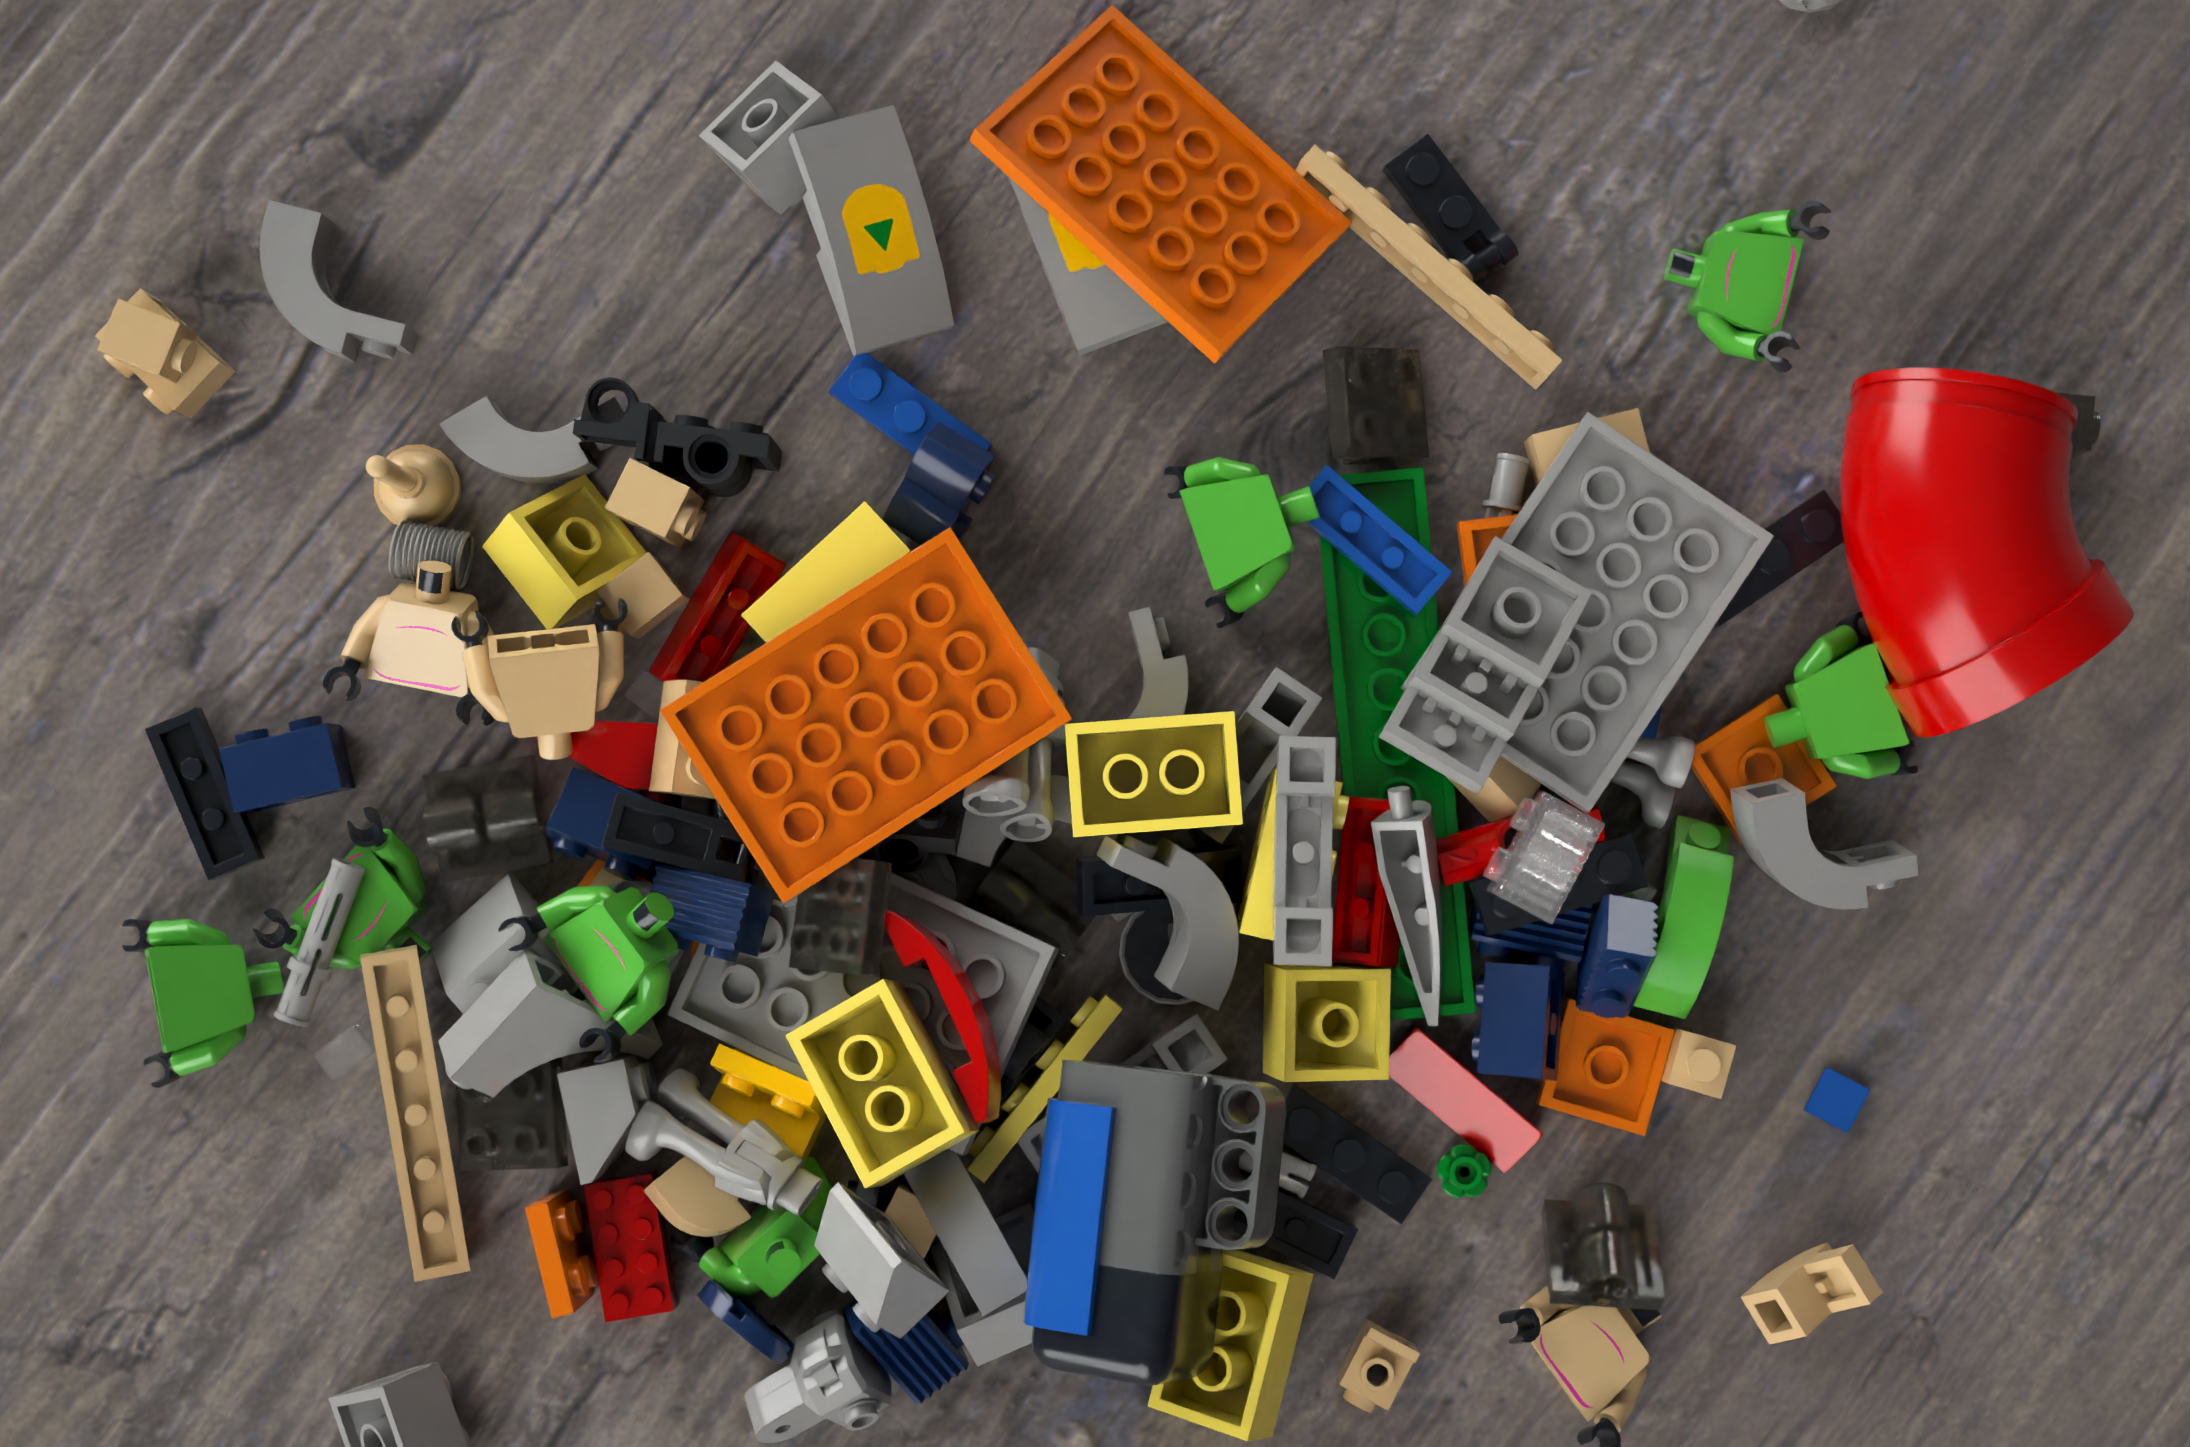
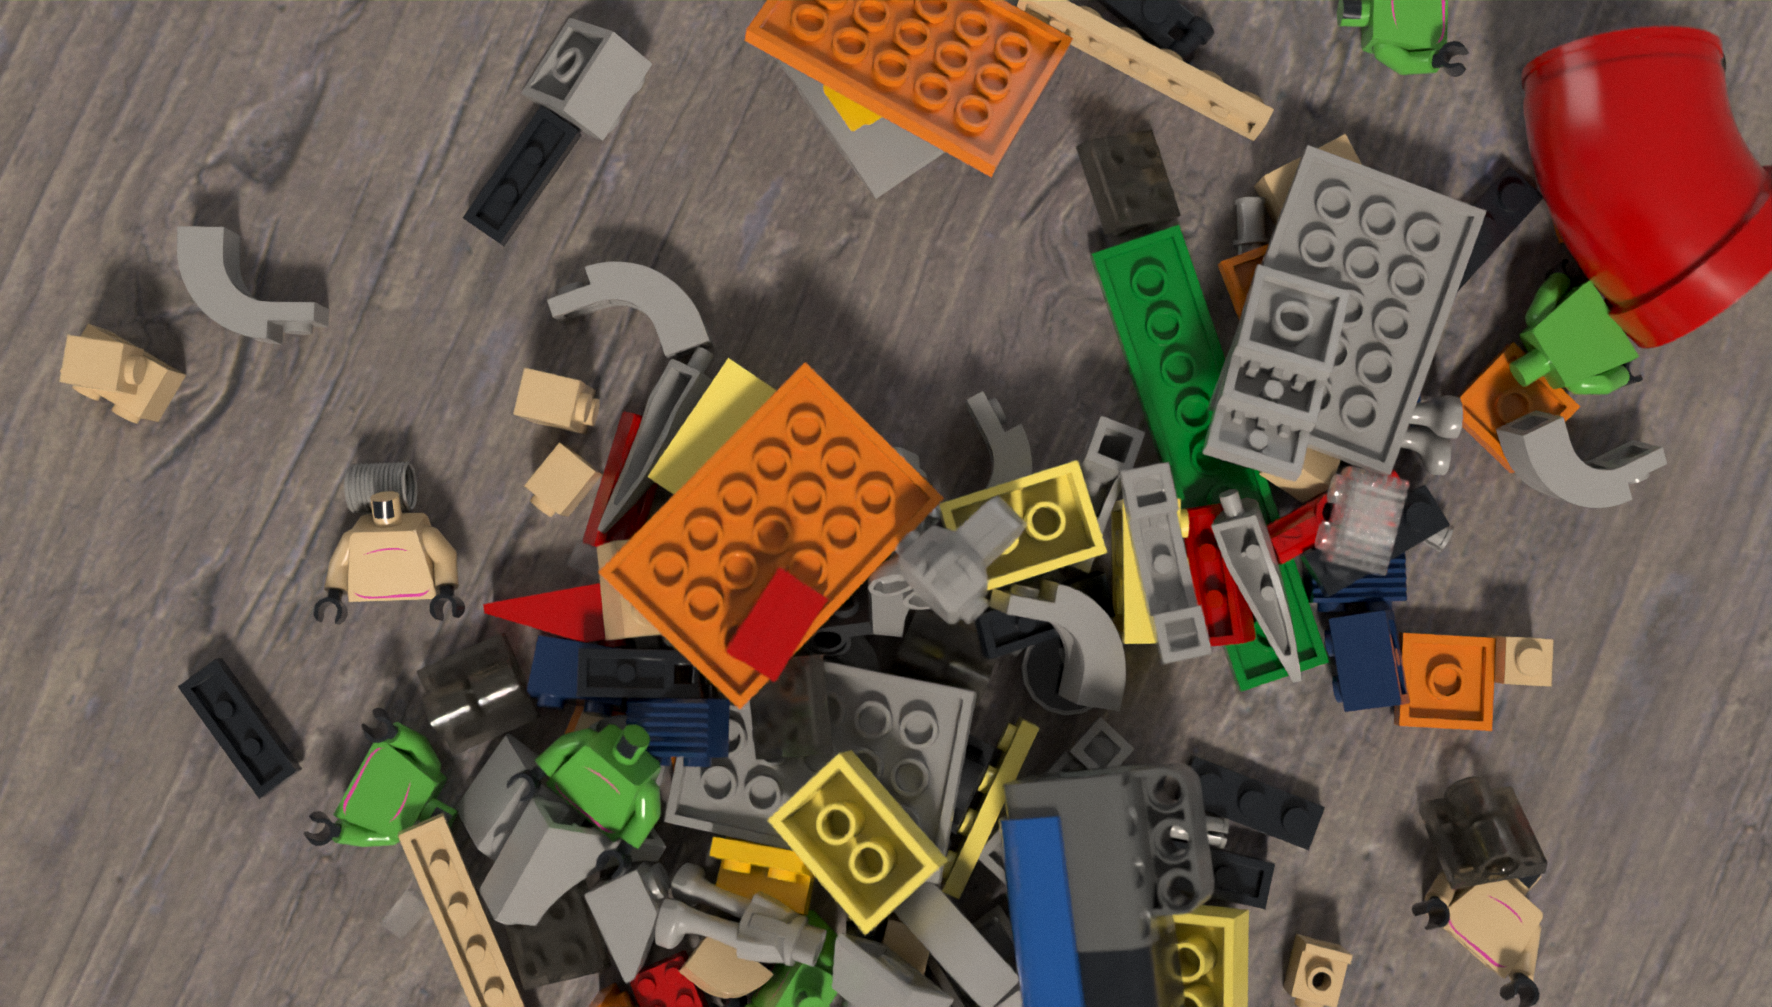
camera: 10 degrees left, 0 degrees up
(199, 992) = (273, 893): bright green torso -> none
(286, 767) = (301, 690): dark blue brick -> none
(296, 1002) = (353, 885): light grey pin -> none
(415, 485) = (353, 432): tan piece -> none
(522, 454) = (449, 385): light grey arch -> none
(546, 678) = (497, 567): tan torso -> none
(562, 550) = (488, 458): light yellow slope -> none
(678, 233) = (522, 176): none -> black plate
(685, 439) = (567, 343): black plate -> none
(776, 549) = (664, 415): none -> light grey piece
(814, 432) = (642, 288): none -> light grey arch
(847, 817) = (776, 624): none -> red panel
(872, 230) = (681, 134): light grey slope -> none
(894, 404) = (748, 284): blue plate -> none
(940, 486) = (787, 332): dark blue brick -> none
(981, 1077) = (939, 817): red slope -> none
(1059, 795) = (951, 565): none -> light grey piece
(1241, 528) = (1044, 308): bright green torso -> none
(1326, 1022) = (1209, 701): light yellow slope -> none
(1375, 542) = (1152, 294): blue plate -> none
(1461, 1100) = (1332, 736): slope -> none
(1464, 1156) = (1337, 792): green plate -> none
(1616, 956) = (1437, 588): dark blue brick -> none
(1688, 915) = (1489, 544): bright green arch -> none
(1808, 1289) = (1656, 824): tan brick -> none
(1836, 1099) = (1639, 663): blue piece -> none

